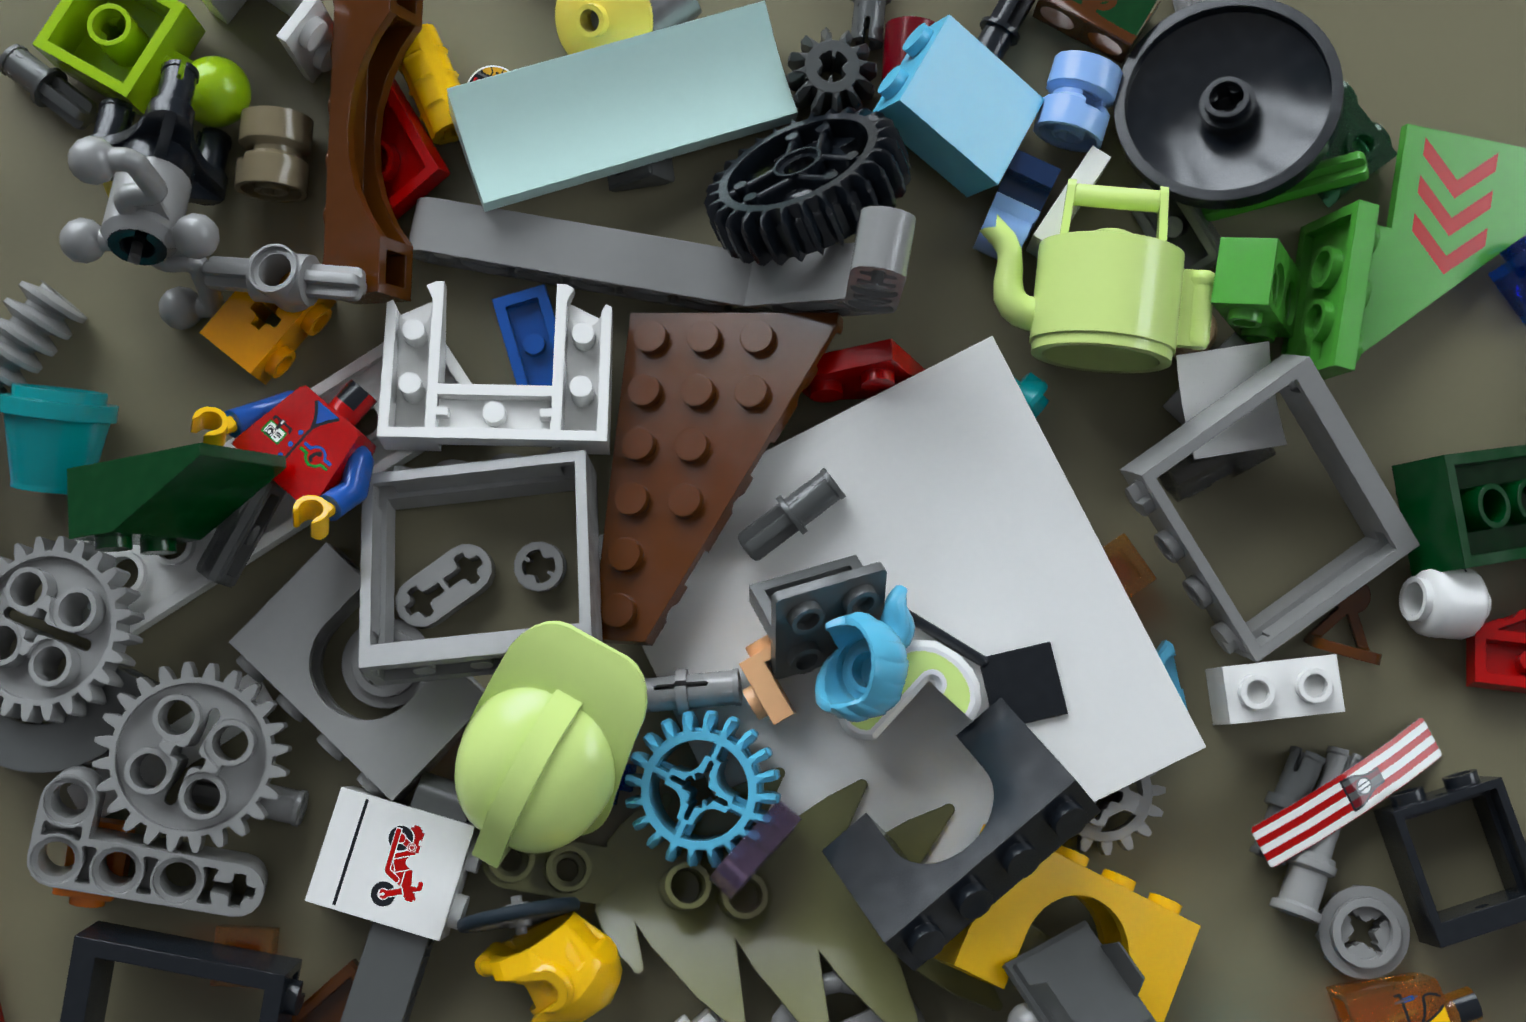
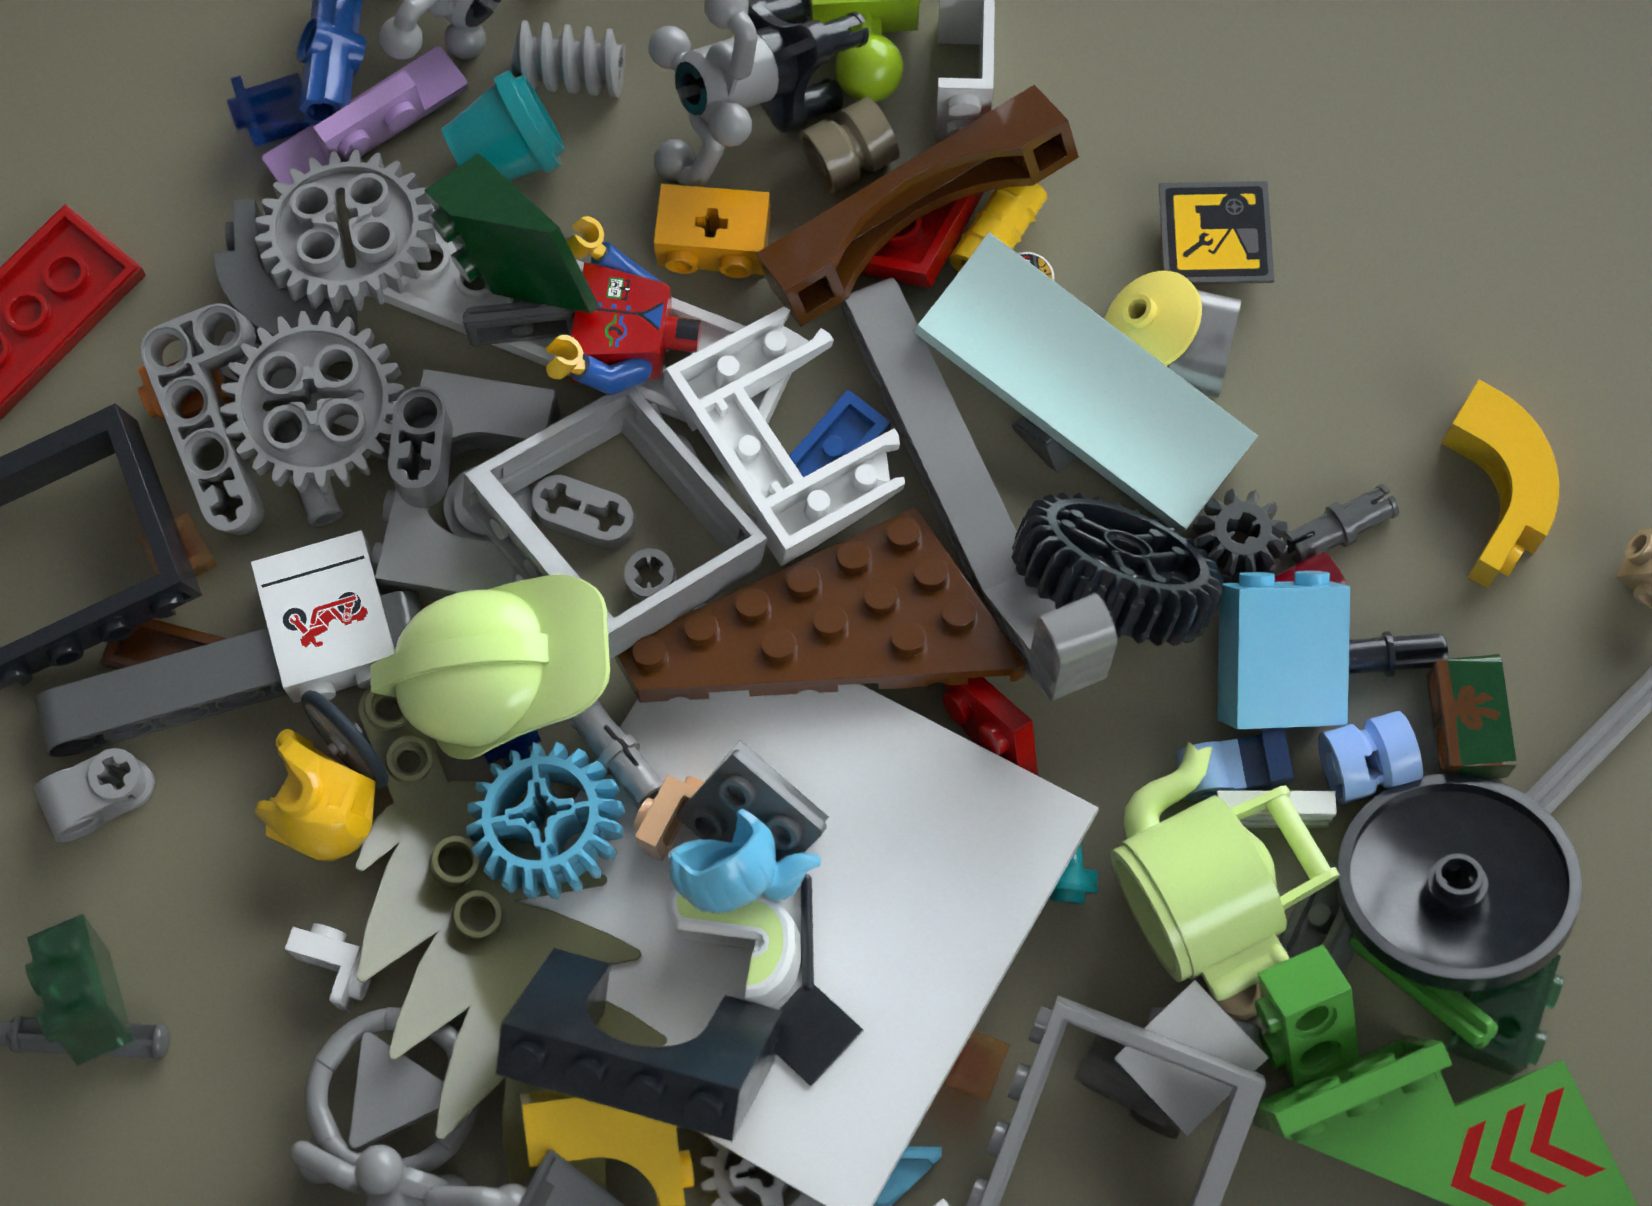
camera: 60 degrees right, 10 degrees down
(299, 291) = (747, 215): light grey axle -> none
(306, 676) = (431, 442): none -> flat silver beam
(755, 849) = (521, 893): clear purple beam -> none
(790, 515) = (827, 742): dark grey axle -> none

